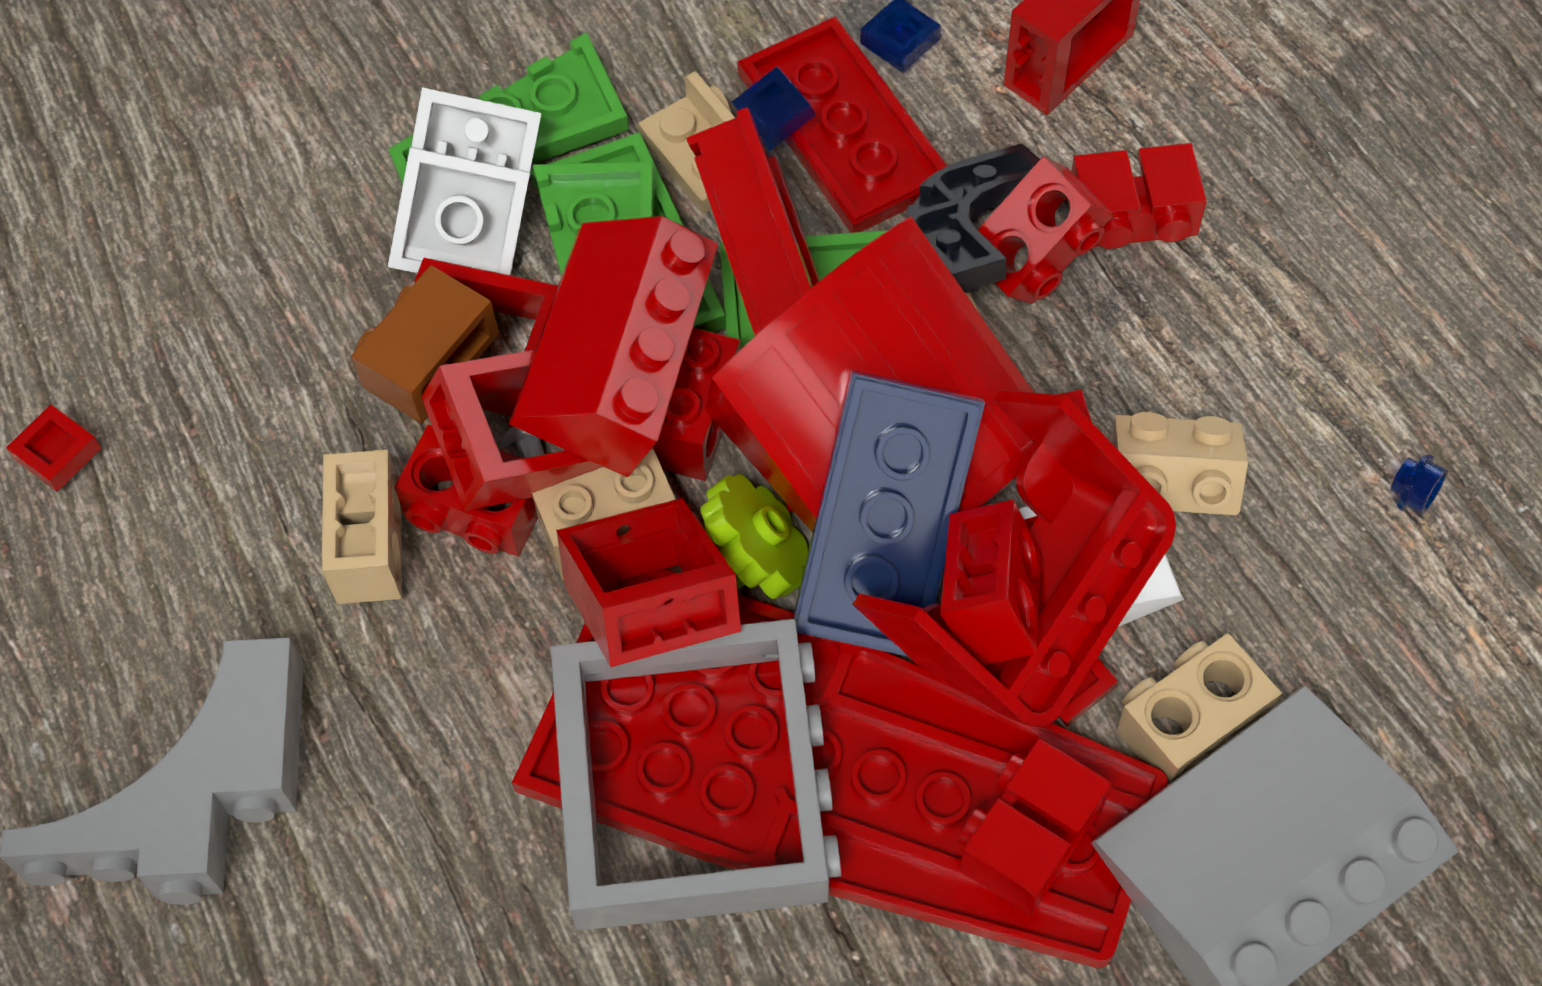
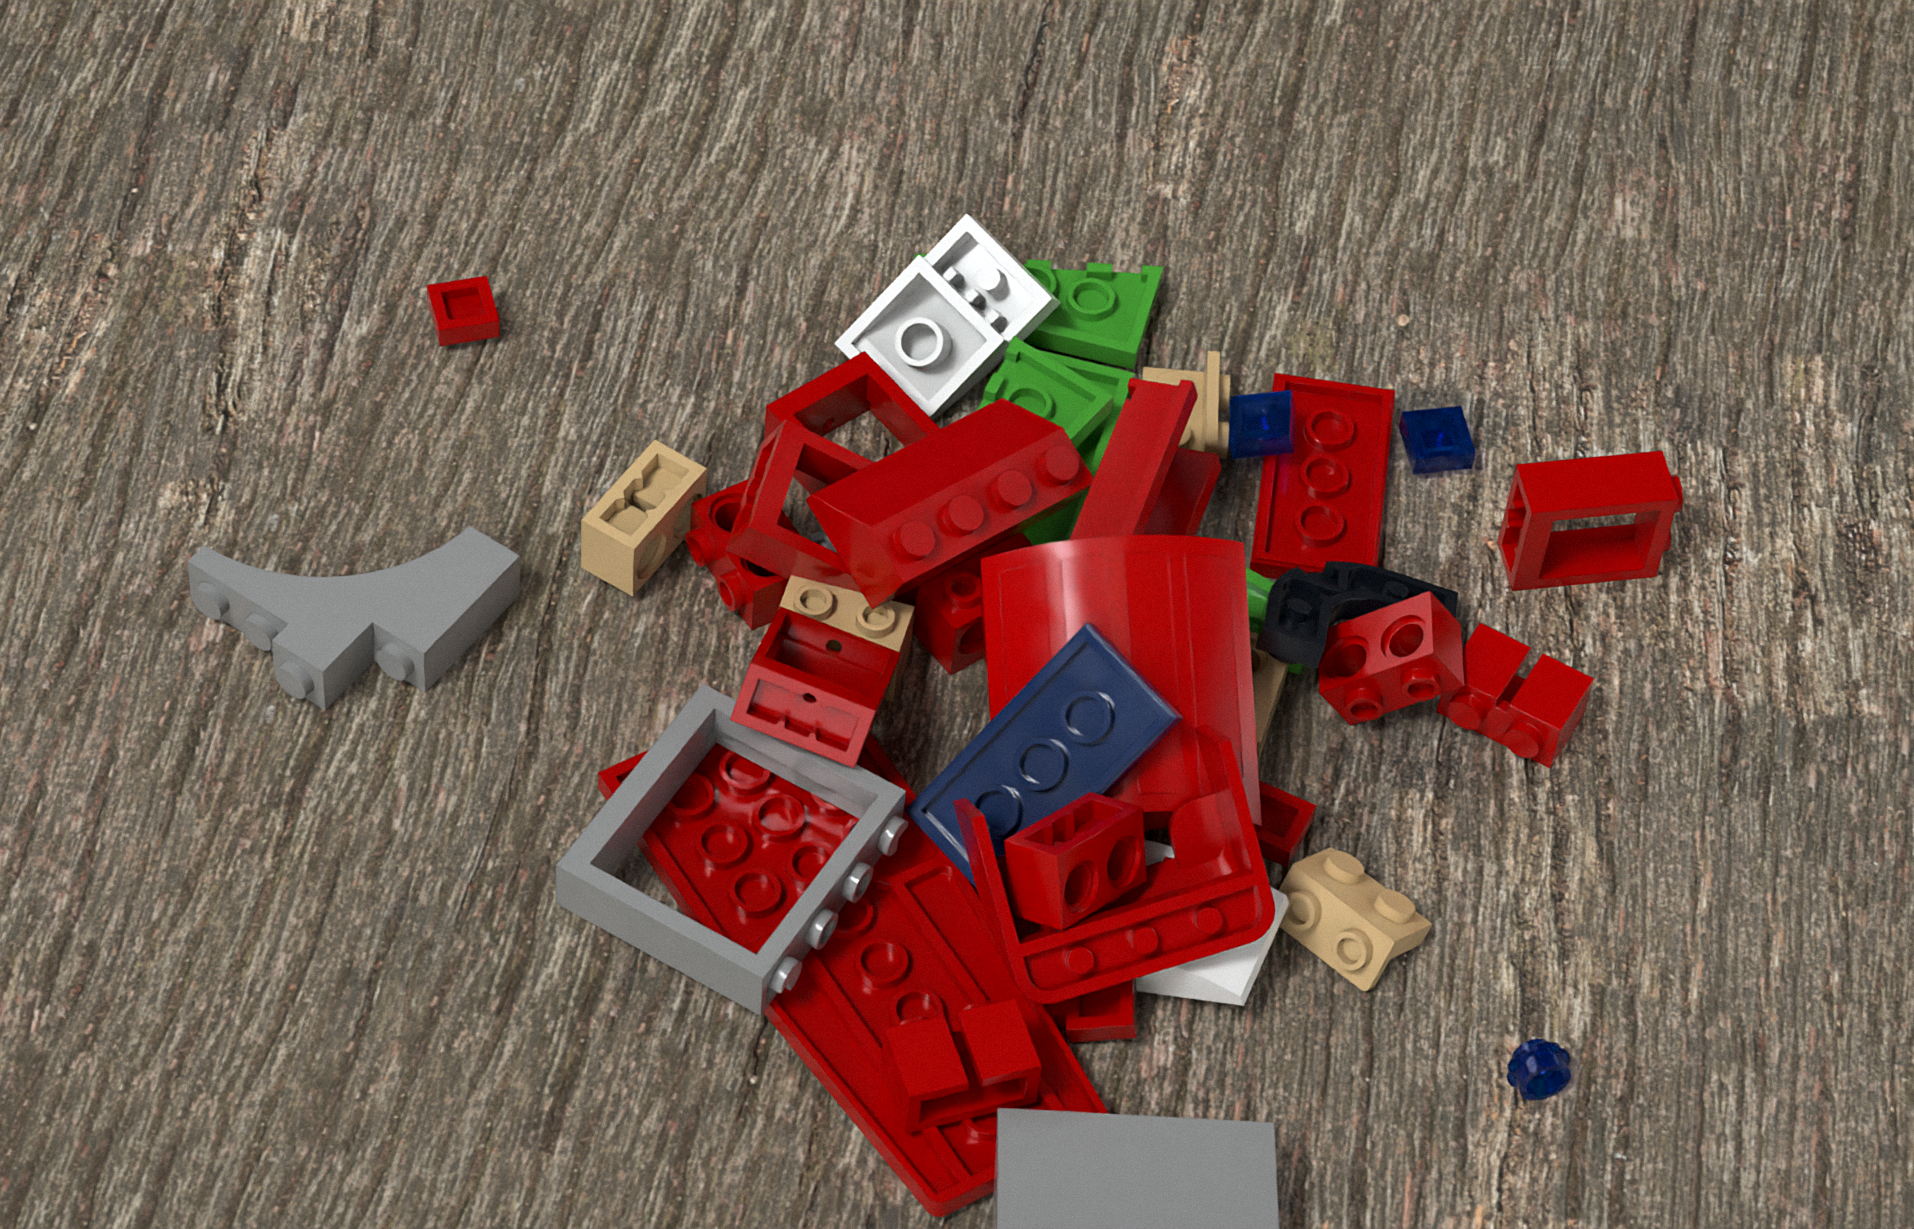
camera: 30 degrees right, 10 degrees down
(429, 325) = (816, 393): dark orange piece -> none
(755, 536) = (931, 719): lime plant -> none
(1204, 717) = (1179, 1075): tan brick -> none

